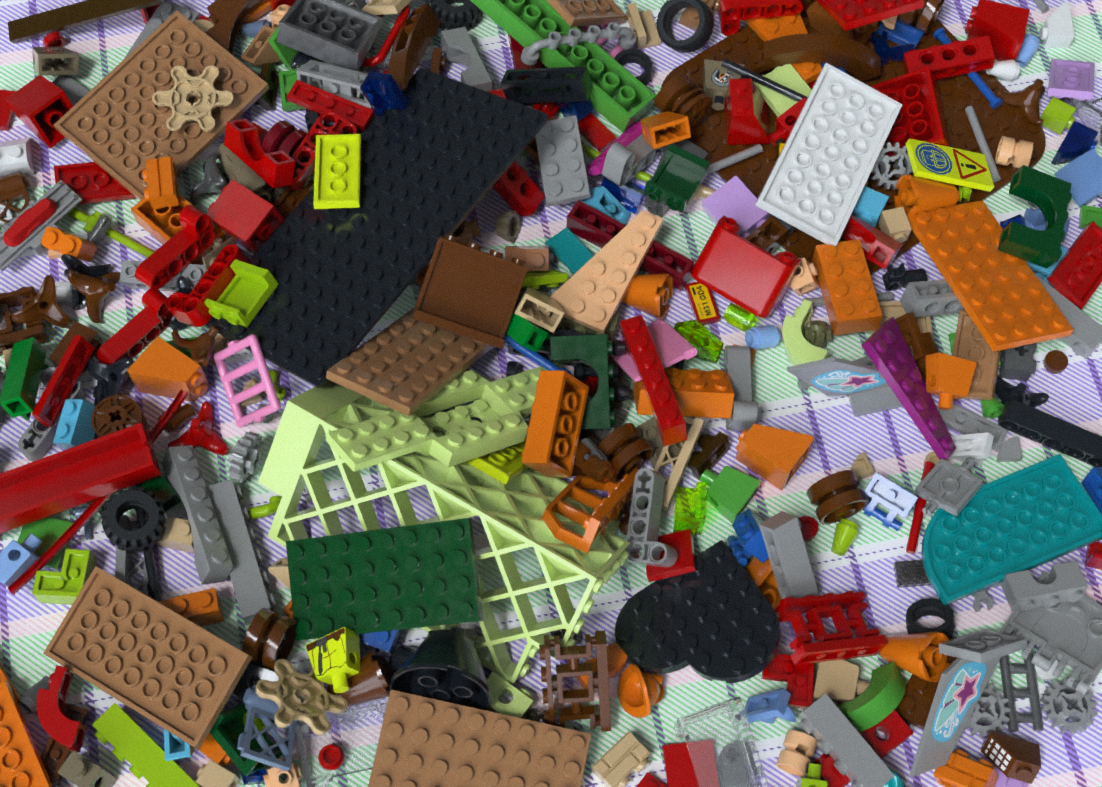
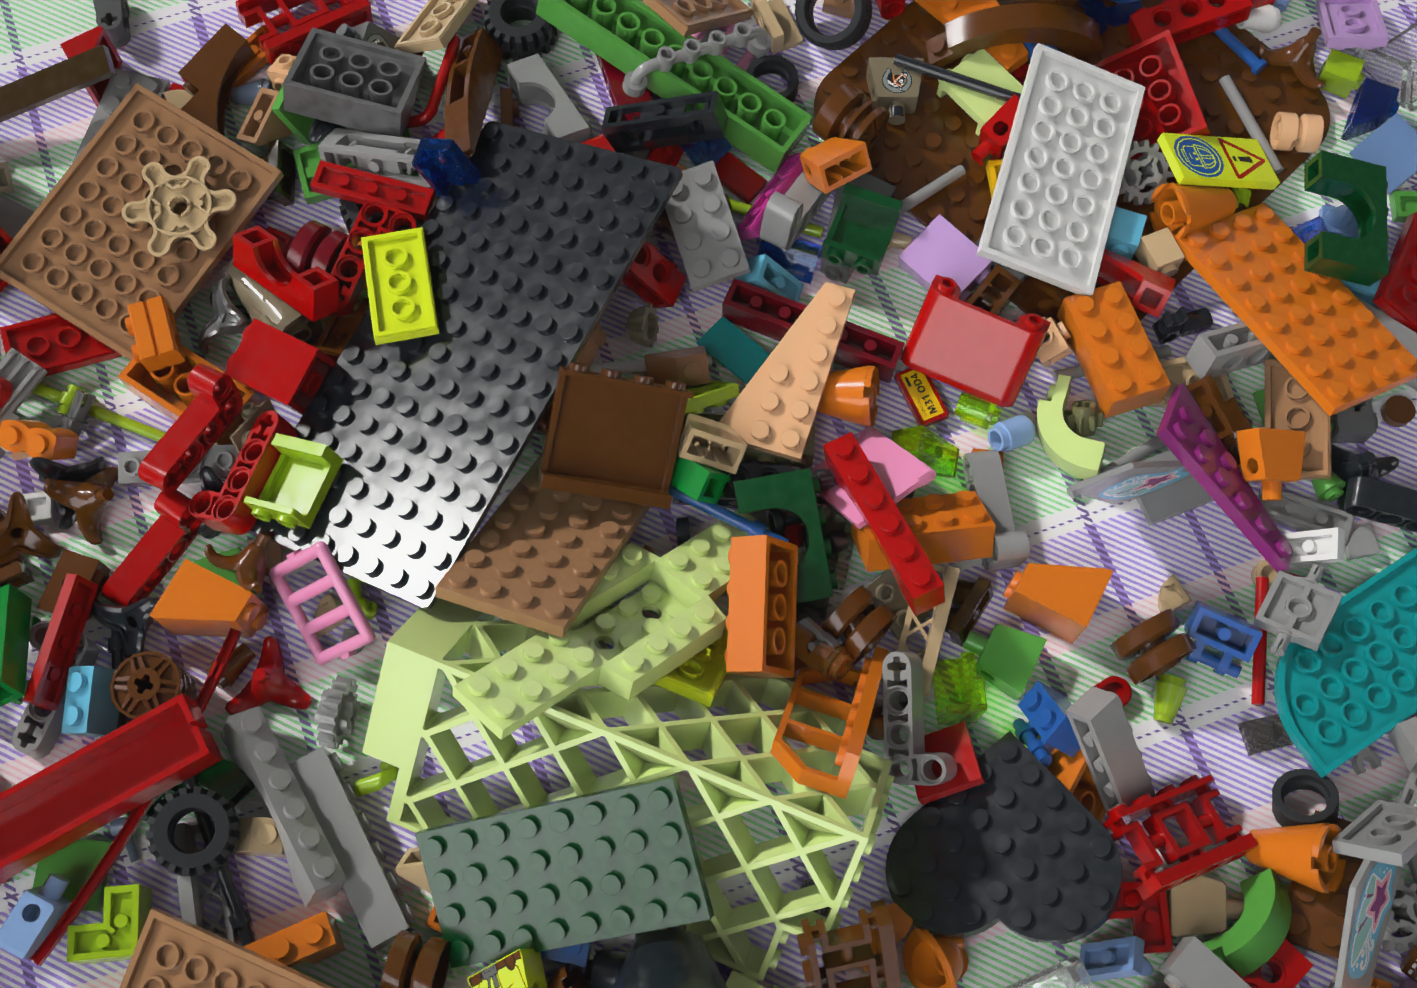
camera: 10 degrees left, 5 degrees up
(745, 114) = (935, 127): red slope -> none

